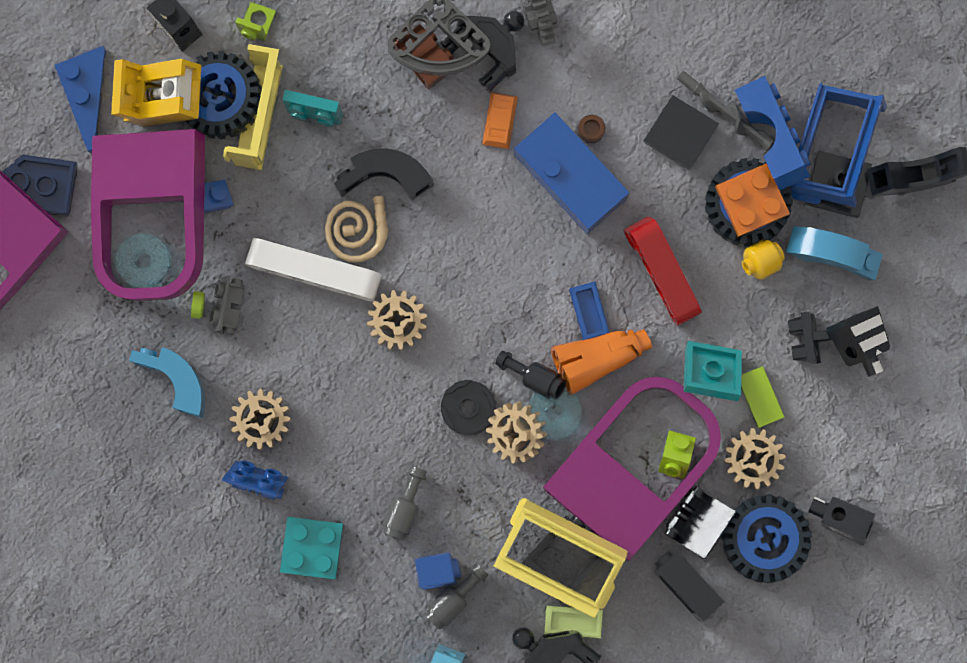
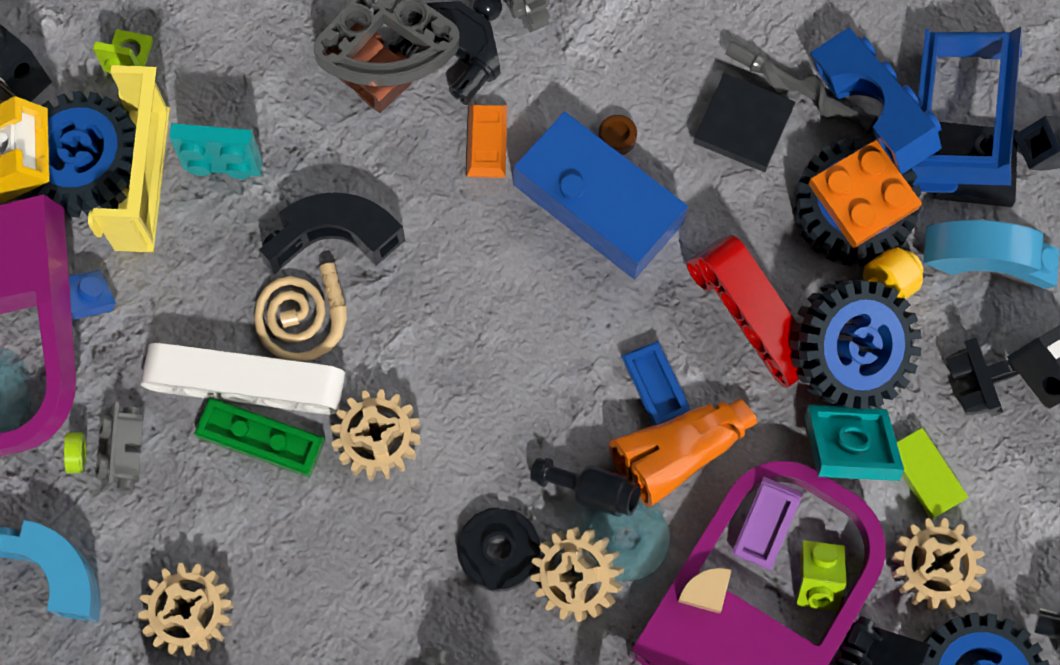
camera: 15 degrees left, 10 degrees down
(319, 310) = (259, 437): none -> green tile
(597, 455) = (707, 590): none -> tan tile
(646, 416) = (767, 523): none -> medium lavender tile
(712, 325) = (834, 364): none -> wheel

